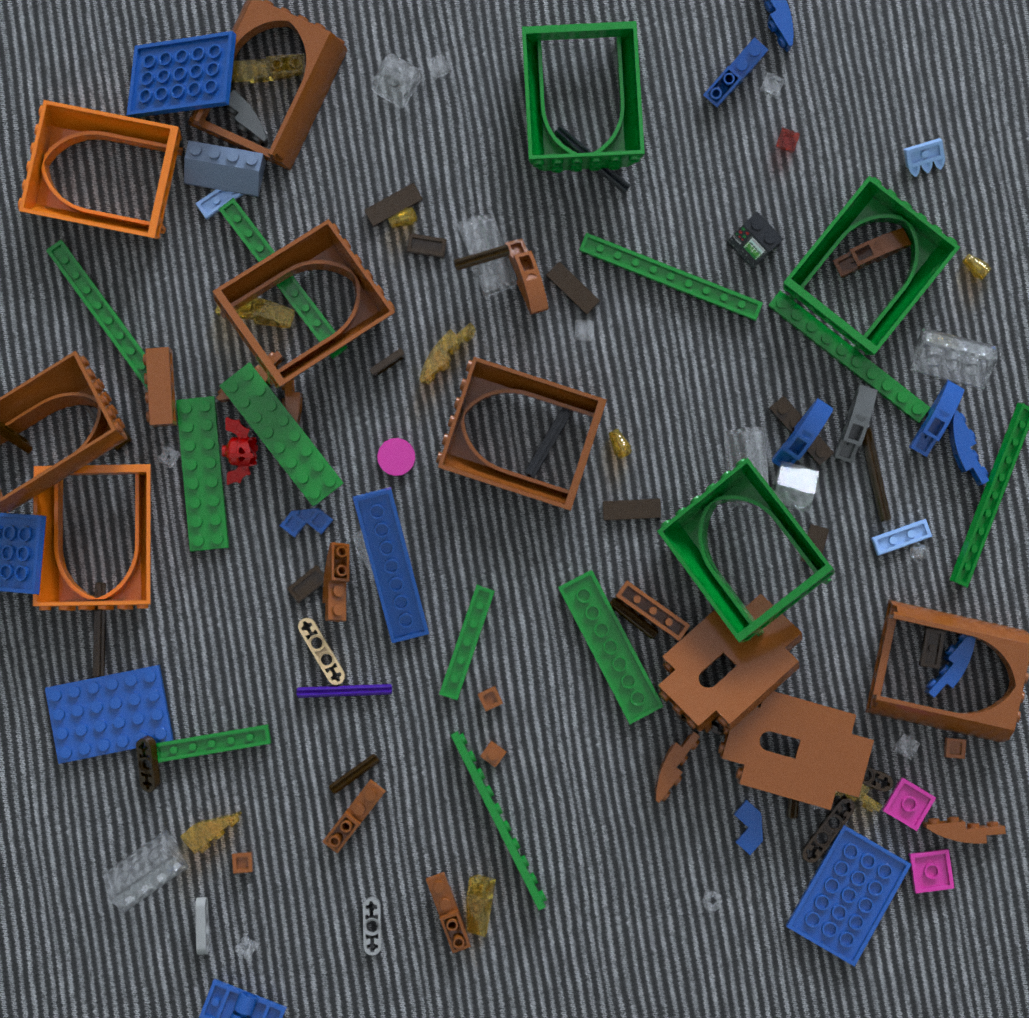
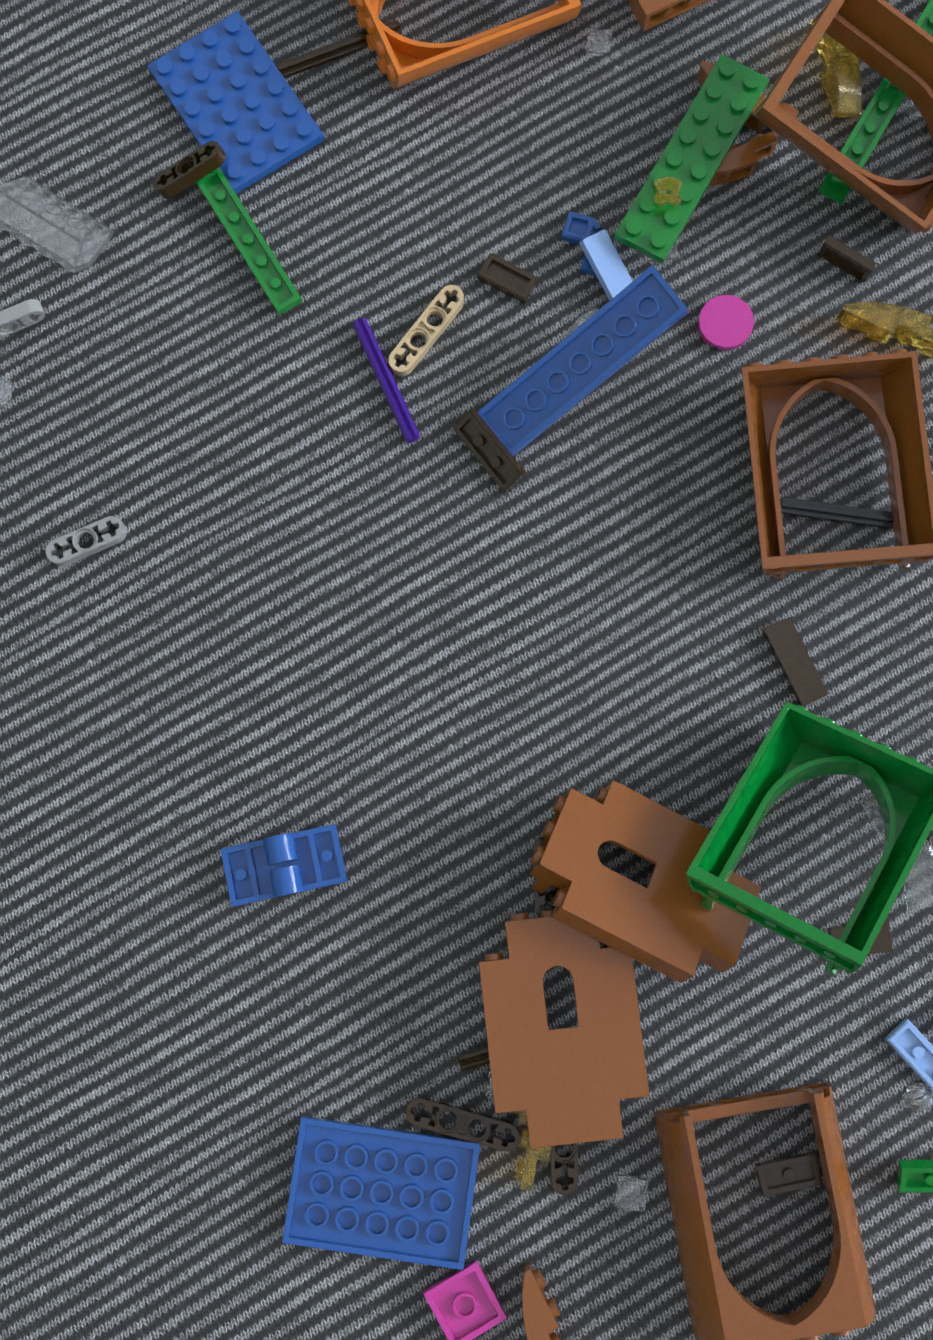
camera: 70 degrees right, 5 degrees down
(202, 473) = (594, 91): green plate -> none
(204, 831) = (124, 274): clear yellow slope -> none
(239, 450) = (646, 119): red helmet -> none
(242, 862) = (107, 340): dark orange plate -> none
(306, 462) = (671, 184): none -> clear yellow plate
(331, 517) = (606, 263): none -> light blue tile
(335, 580) = (526, 309): dark orange slope -> none
(354, 773) = (280, 436): dark brown axle -> none
(354, 816) = (222, 457): dark orange slope -> none
(419, 644) = (489, 450): none -> dark brown tile
(448, 912) = (142, 634): dark orange slope -> none
(466, 642) = (518, 512): green plate -> none
(479, 903) = (170, 668): clear yellow slope -> none
(490, 698) = (454, 573): dark orange plate -> none
(493, 753) = (381, 609): dark orange plate -> none
(502, 826) = (287, 660): green plate -> none
(610, 647) = (593, 708): green plate -> none
(619, 443) = (877, 610): clear yellow cone -> none
(630, 878) = (284, 865): none -> blue plate
(633, 618) = (646, 724): dark brown axle -> none
(652, 610) = (669, 743): dark orange brick -> none
(668, 772) = (452, 859): dark orange slope -> none
(712, 907) = (288, 997): clear plate -> none
(753, 834) = (412, 1016): blue tile -> none
(908, 803) = (548, 1230): dark pink plate -> none
(955, 748) = (658, 1268): dark orange plate -> none
(958, 658) = (790, 1220): blue slope -> none

